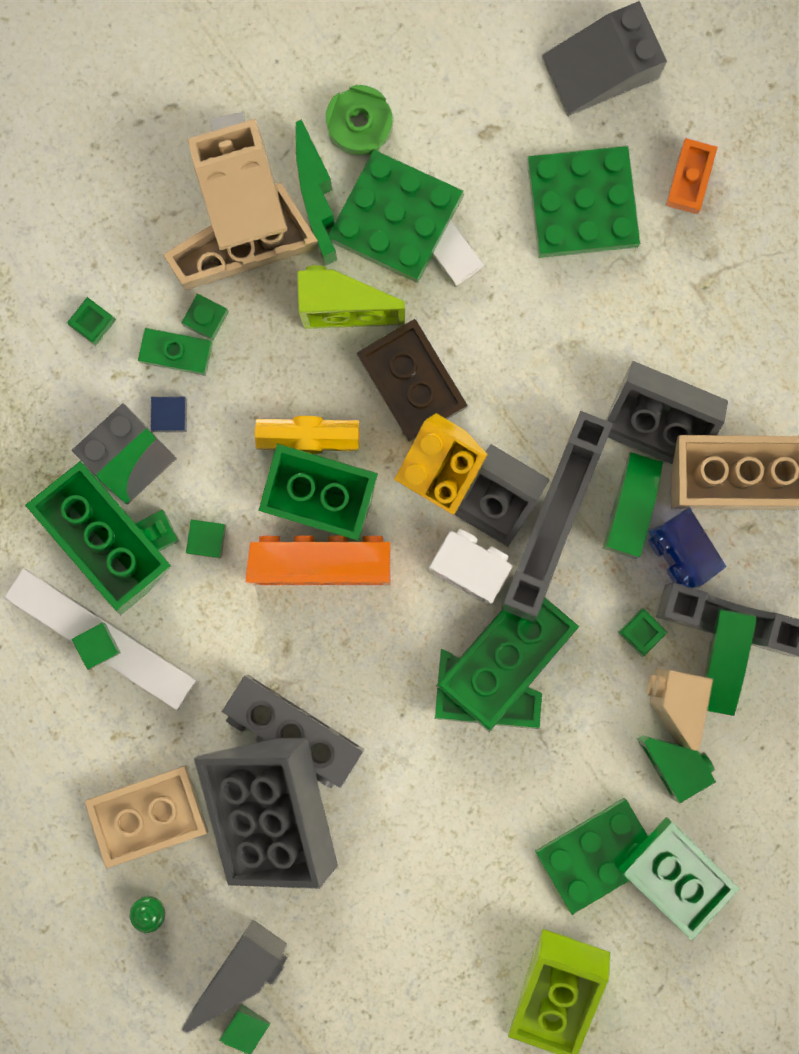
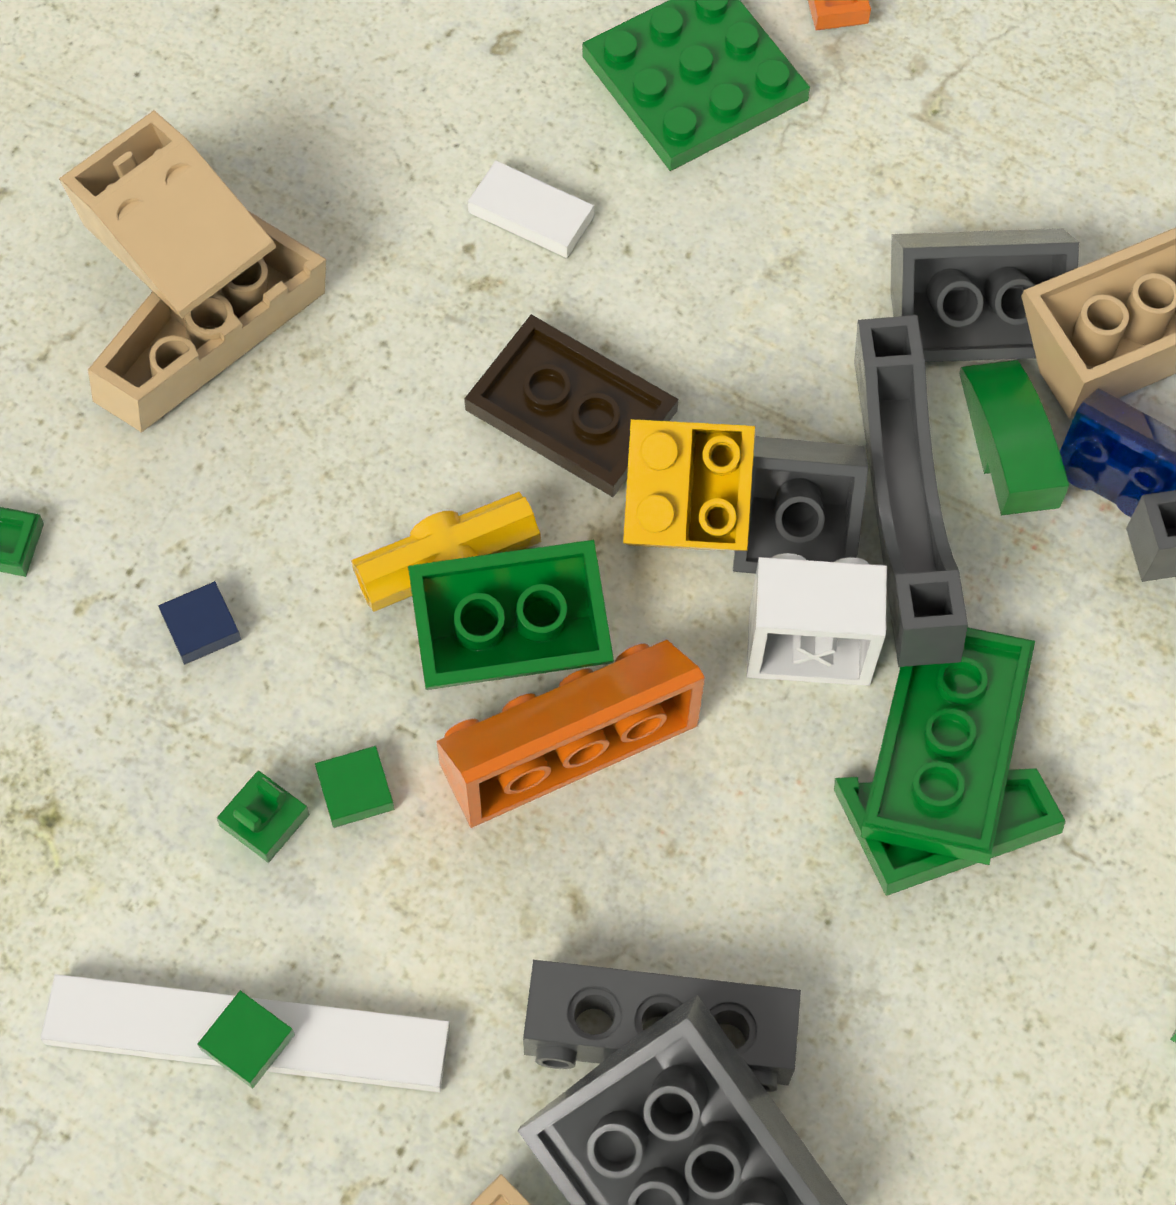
camera: 30 degrees left, 20 degrees down
(99, 537) = (172, 854): green slope -> none
(124, 454) = (152, 708): dark grey slope -> none
(175, 351) = (166, 525): green plate -> none
(205, 317) = (192, 456): green plate -> none
(314, 184) = (279, 197): green slope -> none
(340, 301) = (415, 326): lime slope -> none
(349, 104) = (311, 120): bright green plate -> none
(395, 216) = (425, 197): green plate -> none
(642, 632) = (1135, 613): green tile -> none

